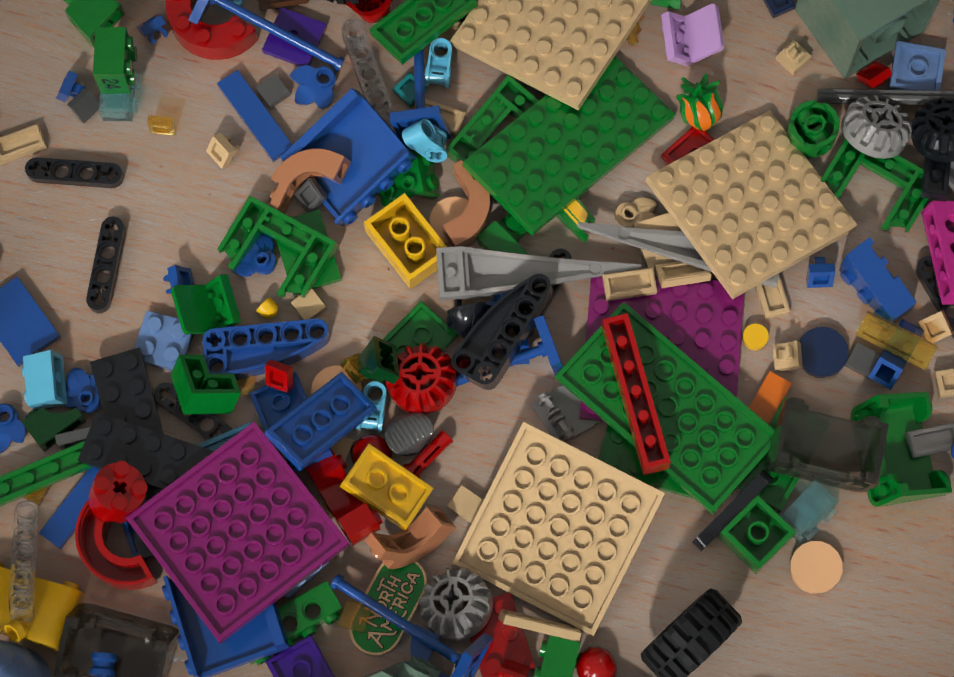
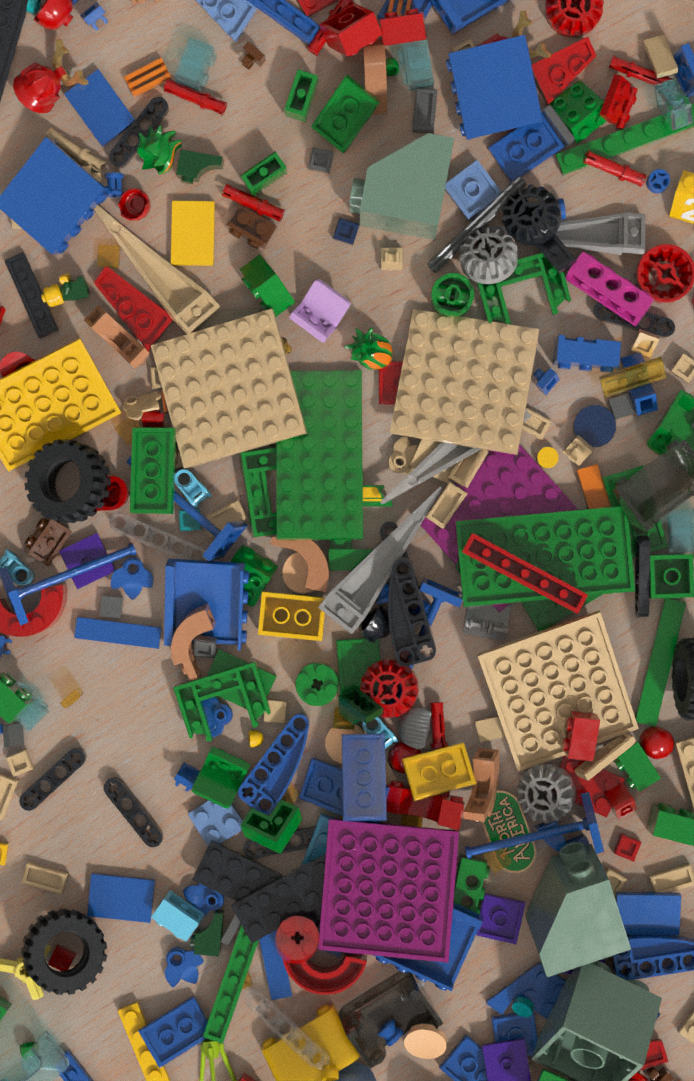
camera: 55 degrees left, 15 degrees up
(63, 134) = (19, 762): none -> tan tile
(222, 150) = (123, 676): tan tile -> none
(279, 376) = (307, 773): red plate -> none
(360, 303) = (313, 695): none -> green brick
(426, 140) = (239, 547): medium azure piece -> none
(538, 584) = (581, 736): none -> red brick
(670, 602) = (660, 662): none -> green tile
(874, 74) = (451, 220): red plate -> none

